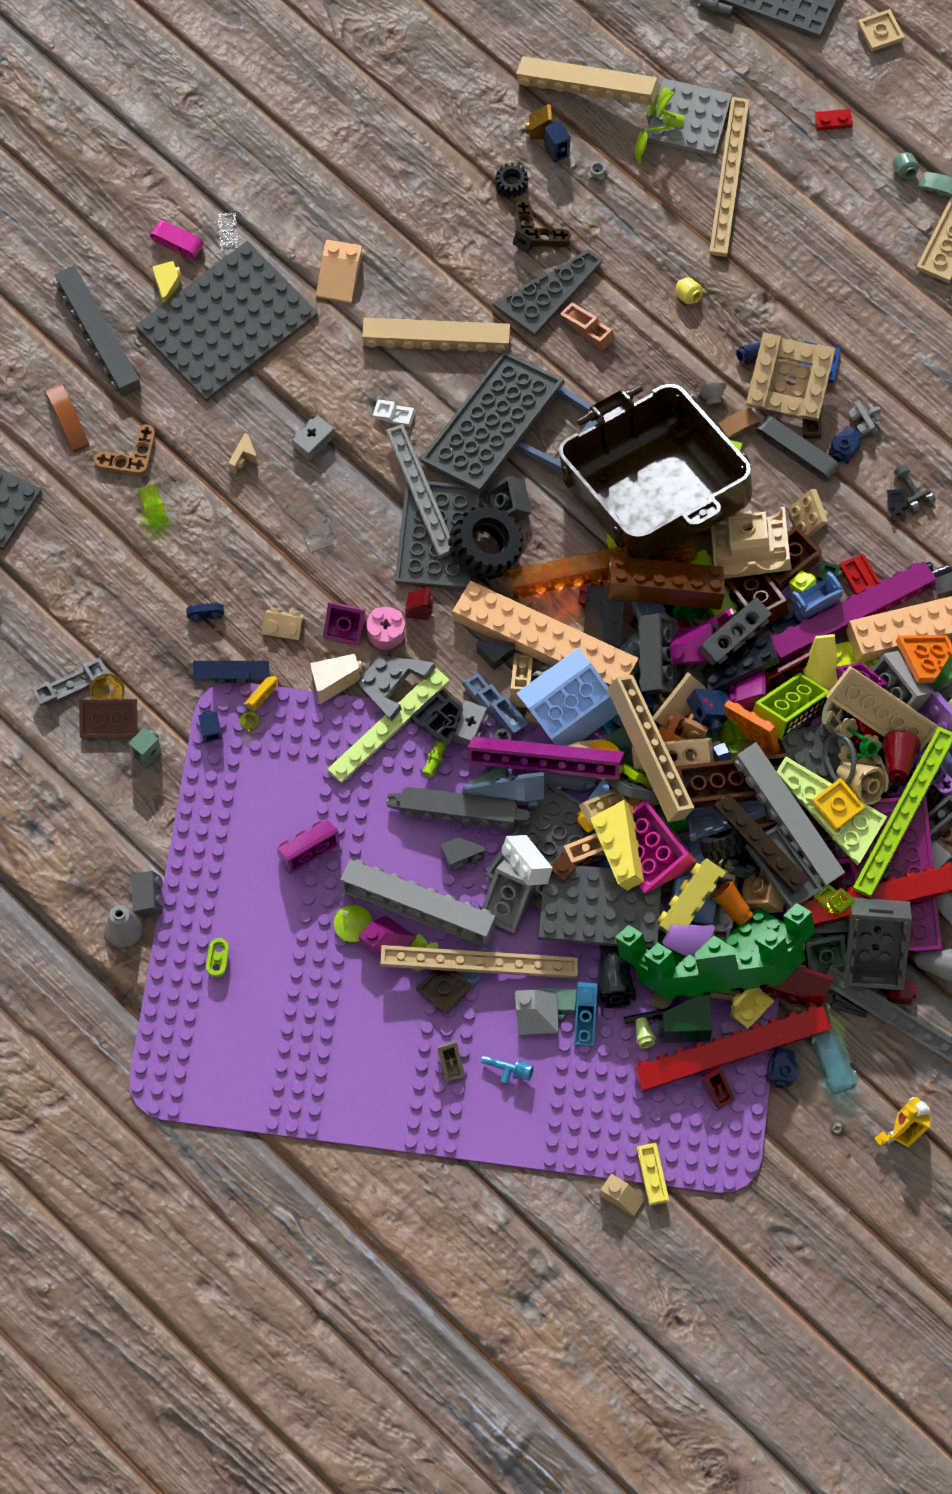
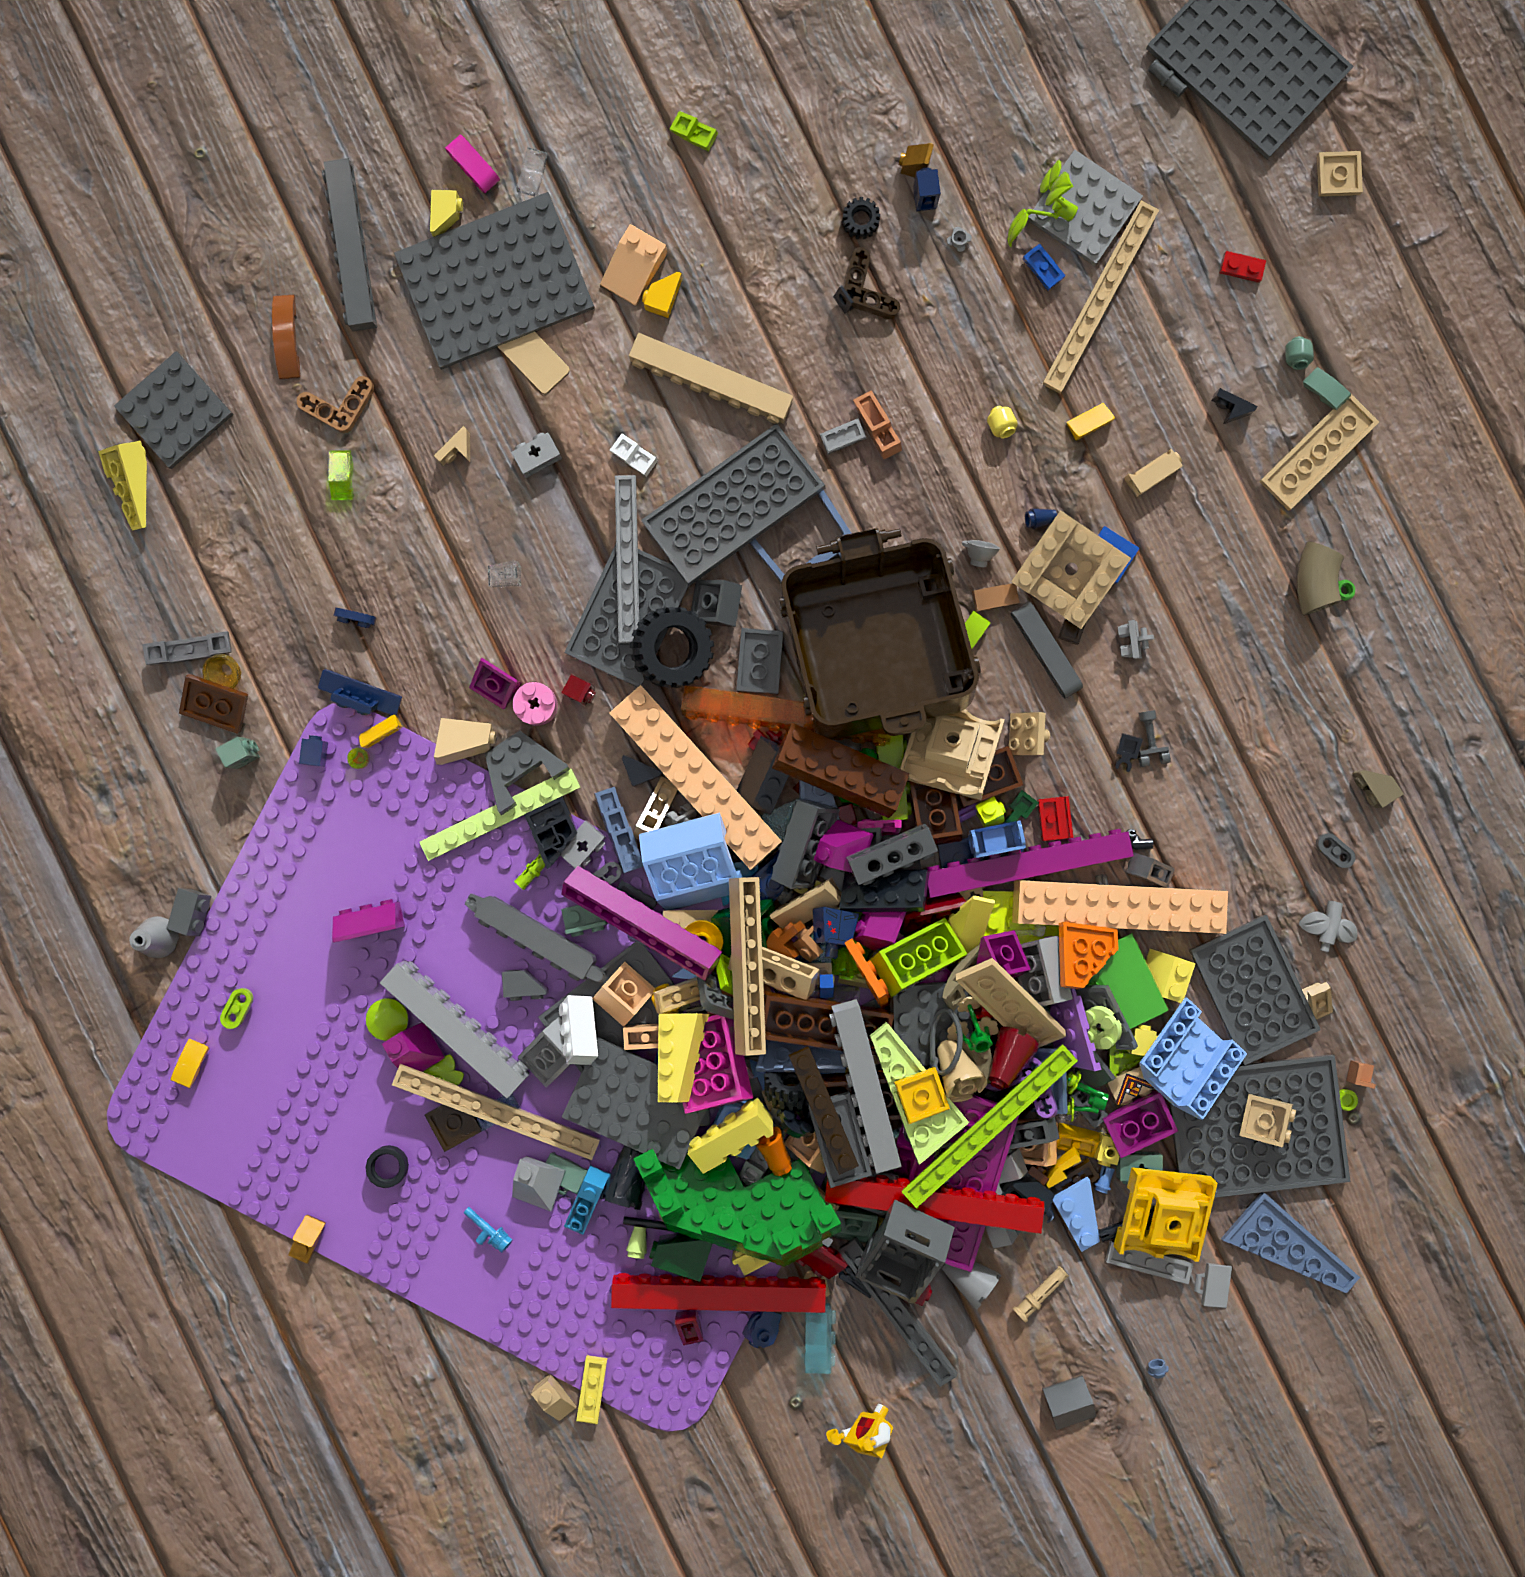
camera: 20 degrees right, 20 degrees up
(192, 1018) = (189, 1063): none -> yellow slope
(282, 624) = (431, 658): tan bracket -> none
(284, 370) = (536, 361): none -> tan piece
(349, 161) = (693, 131): none -> lime slope
(349, 1133) = (306, 1238): none -> slope
(371, 286) = (662, 295): none -> yellow slope
(399, 1029) = (375, 1178): none -> black tyre
(450, 1061) = (431, 1203): dark tan slope -> none
(524, 790) = (598, 944): sand blue wedge -> none
(544, 296) = (844, 372): dark grey wing -> none
(552, 826) = (624, 994): none -> light nougat slope
(561, 533) = (759, 661): none -> dark grey plate
(562, 343) = (843, 436): none -> light grey plate
(562, 868) = (611, 1055): reddish brown plate -> none
(588, 80) = (988, 127): tan brick -> none
(674, 169) = (1043, 267): none -> blue plate
(687, 938) = (710, 1182): medium lavender slope -> none
(760, 269) = (1090, 421): none -> yellow slope
(827, 289) = (1154, 472): none -> tan window
(834, 900) = (877, 1197): clear neon green slope -> none
(845, 445) = (1100, 663): dark blue hand -> none
(874, 219) = (1237, 406): none -> black slope

